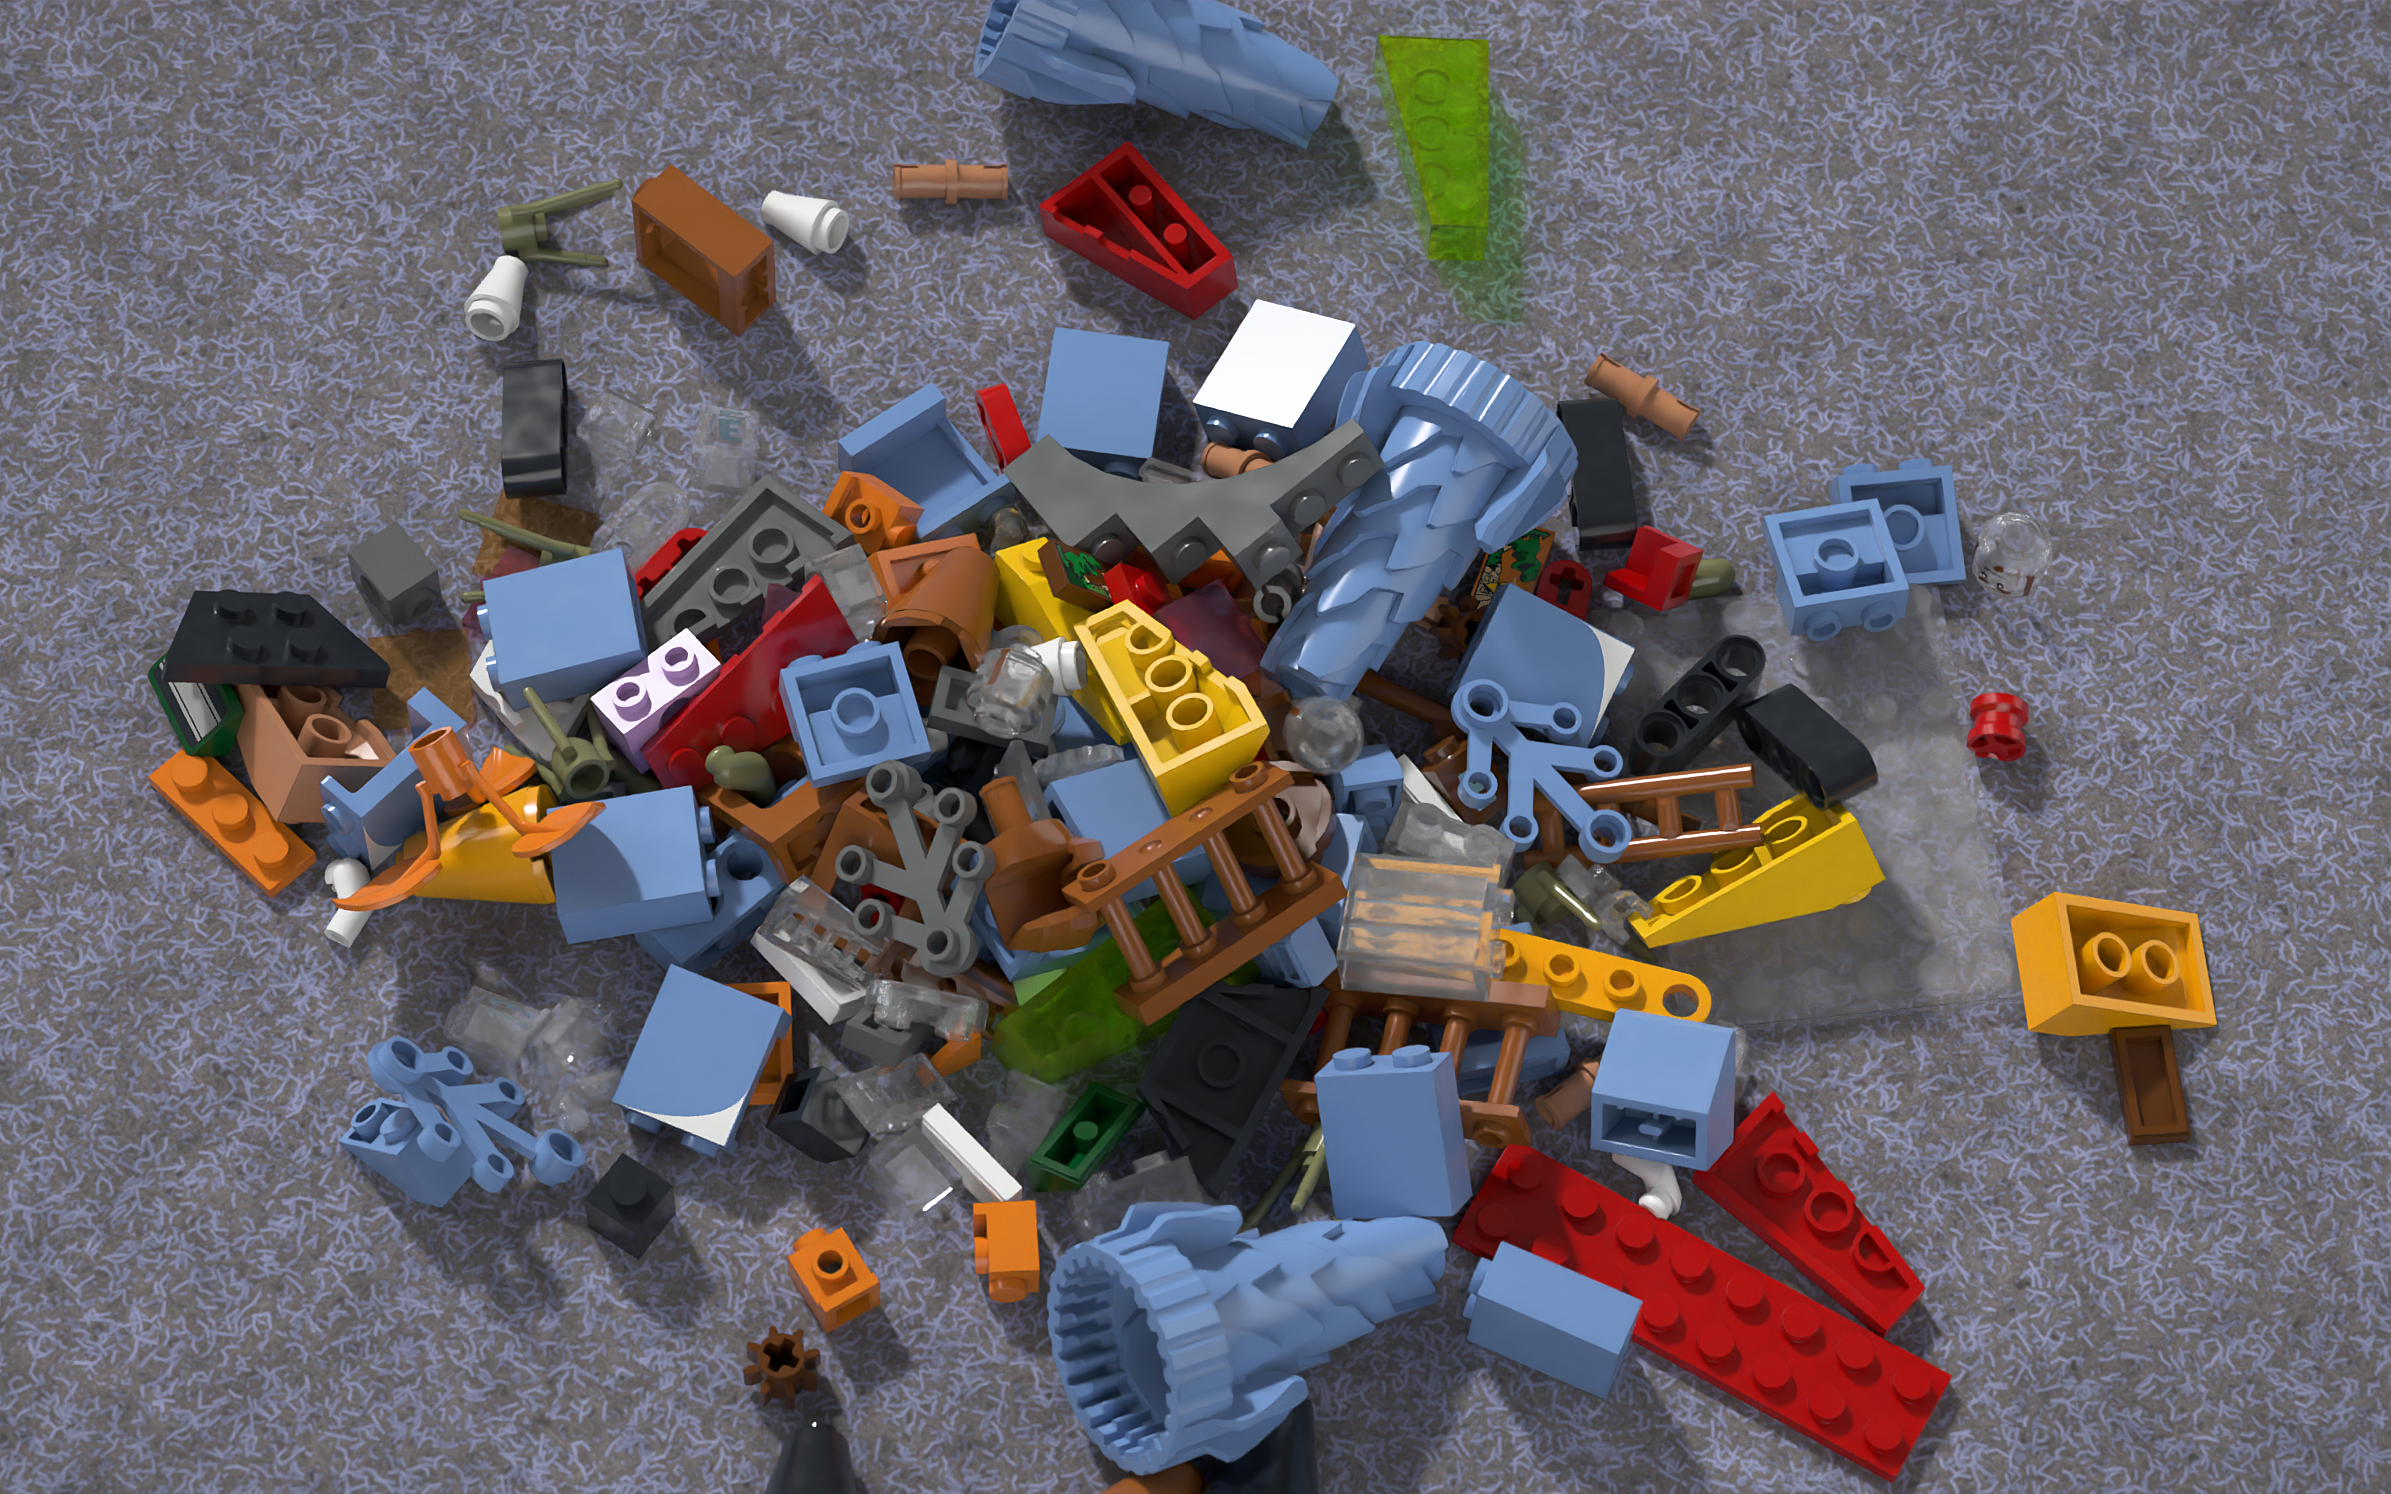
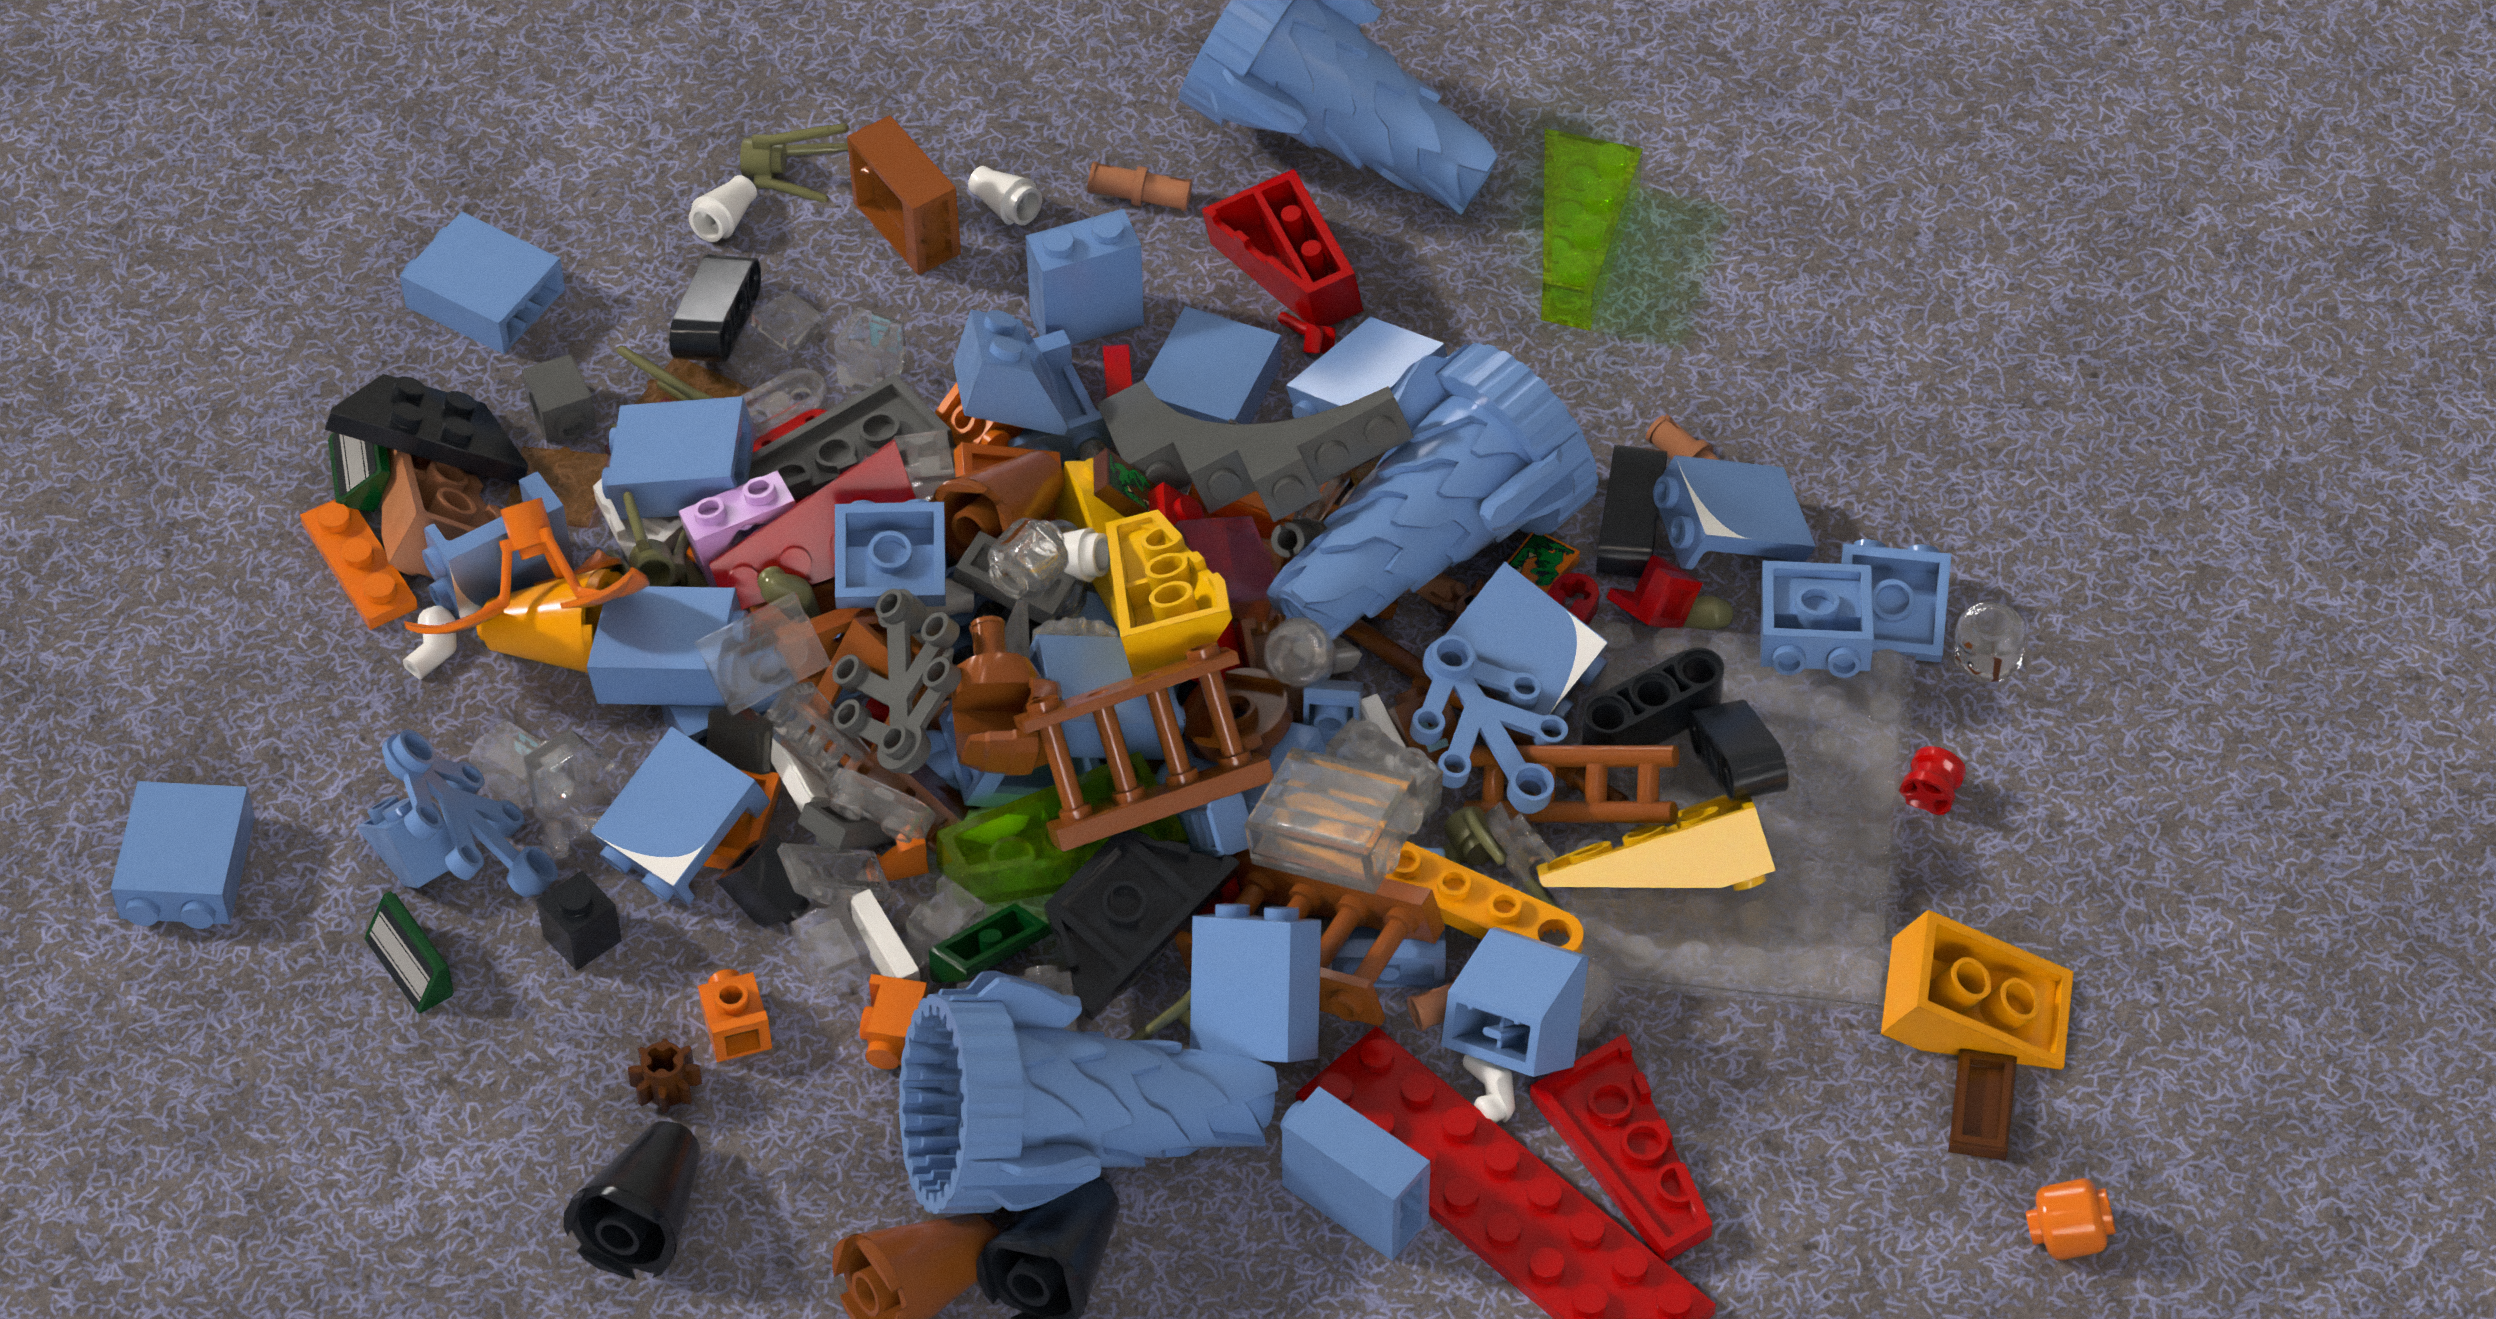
camera: 20 degrees right, 10 degrees down
(162, 1222) = (183, 853): none -> medium blue brick
(258, 446) = (482, 282): none -> medium blue brick
(453, 1286) = (408, 955): none -> slope
(740, 953) = (741, 739): none -> clear smoke slope
(753, 863) = (762, 653): none -> clear plate
(896, 460) = (1006, 375): none -> medium blue slope
(940, 318) = (1086, 277): none -> medium blue brick
(1202, 330) = (1316, 338): none -> red hand
(1710, 462) = (1731, 511): none -> medium blue panel
(2278, 1198) = (2071, 1219): none -> orange head

